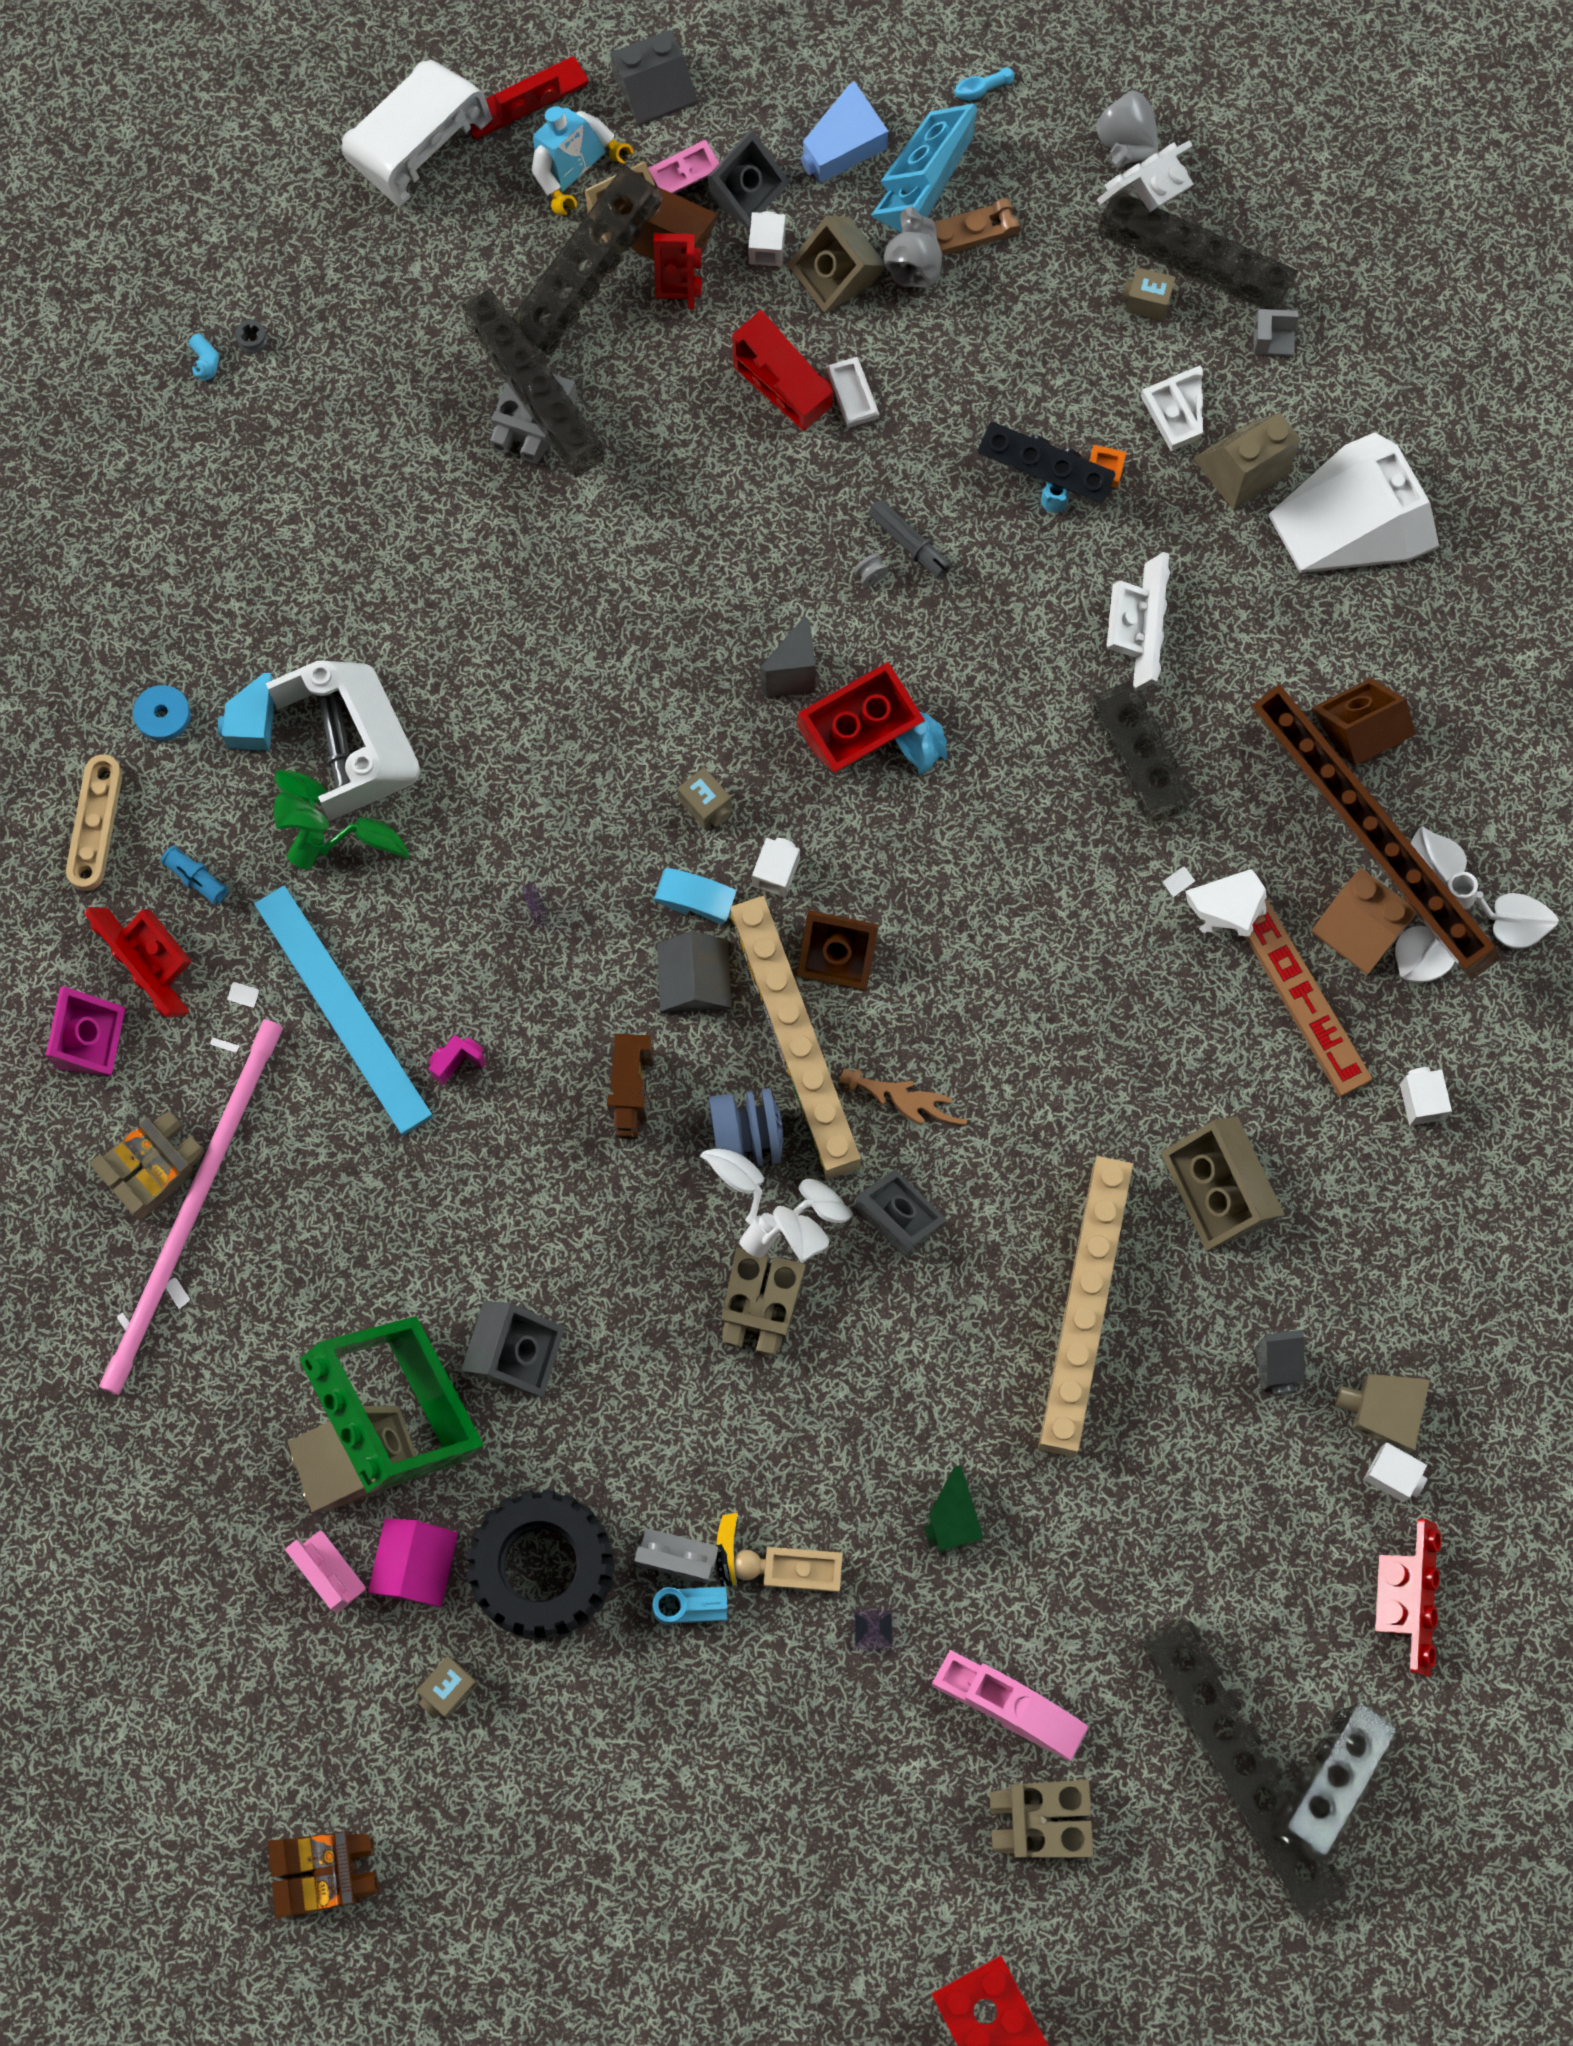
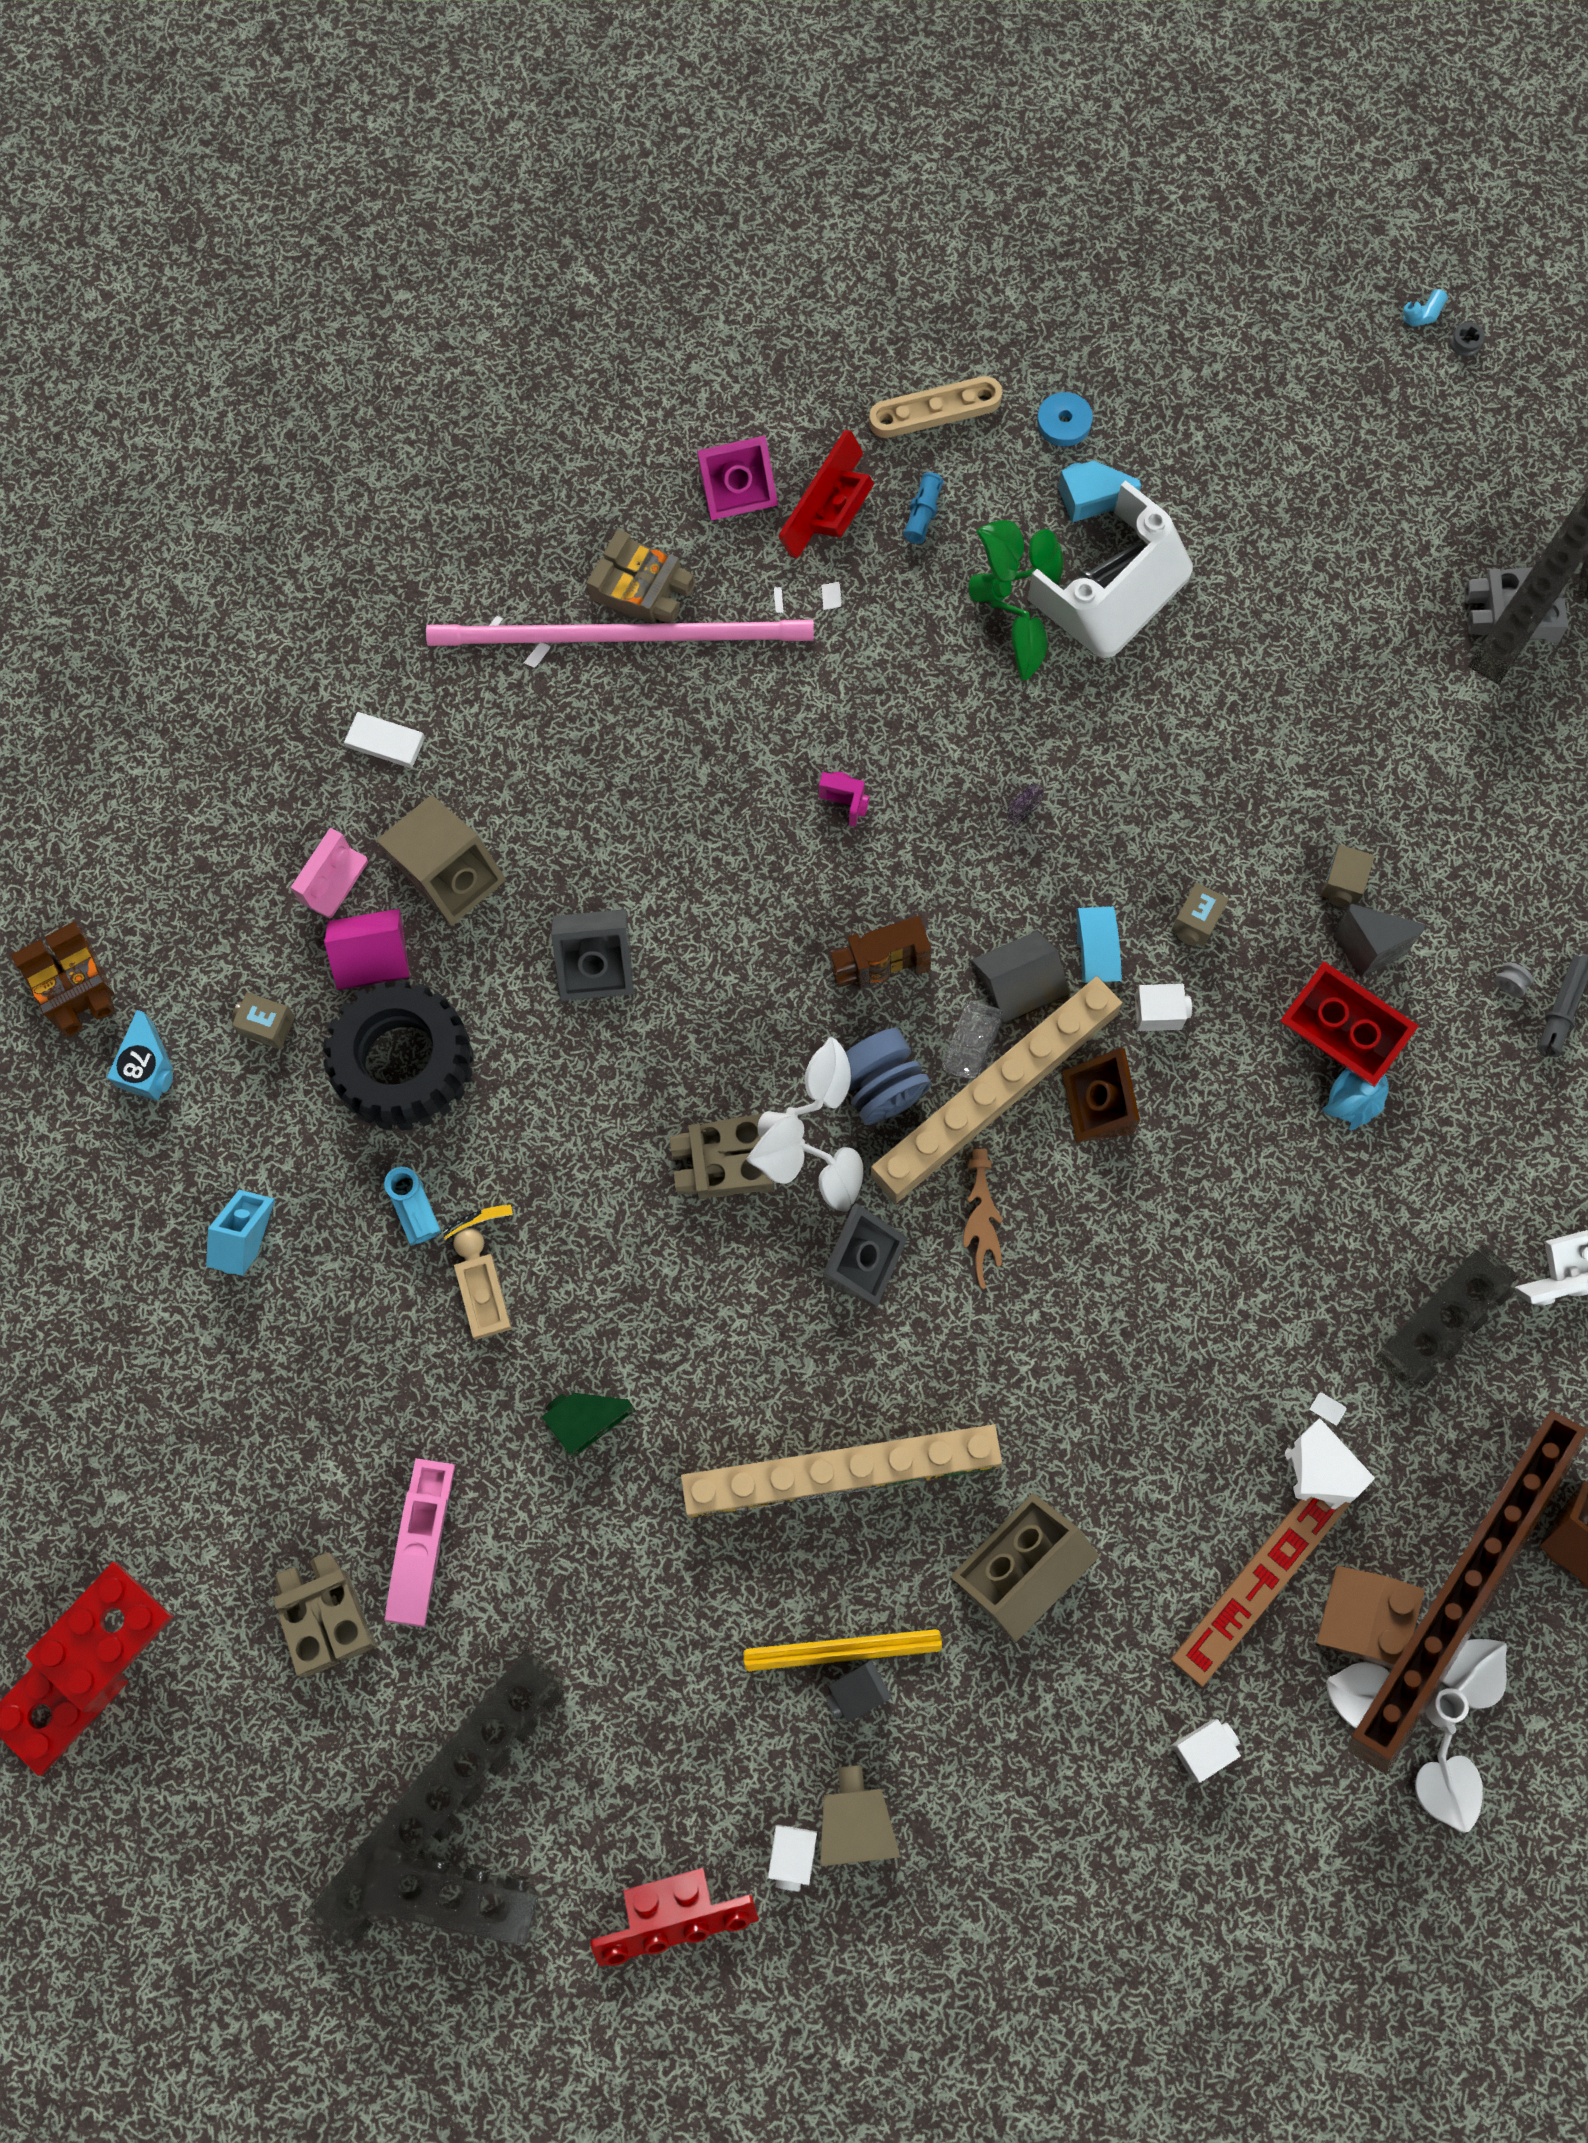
camera: 70 degrees right, 0 degrees up
(201, 1472) = (384, 740): none -> white tile
(343, 1011) = (851, 684): medium azure tile -> none
(429, 1384) = (529, 899): green window -> none
(440, 1820) = (142, 1061): none -> medium azure slope
(650, 1779) = (238, 1232): none -> medium azure slope
(677, 1556) = (452, 1175): light grey bracket -> none
(721, 662) = (1347, 876): none -> dark tan brick
(739, 1039) = (972, 1040): none -> clear plate
(873, 1629) = (450, 1385): clear purple tile -> none
(1237, 1366) = (842, 1650): none -> yellow axle

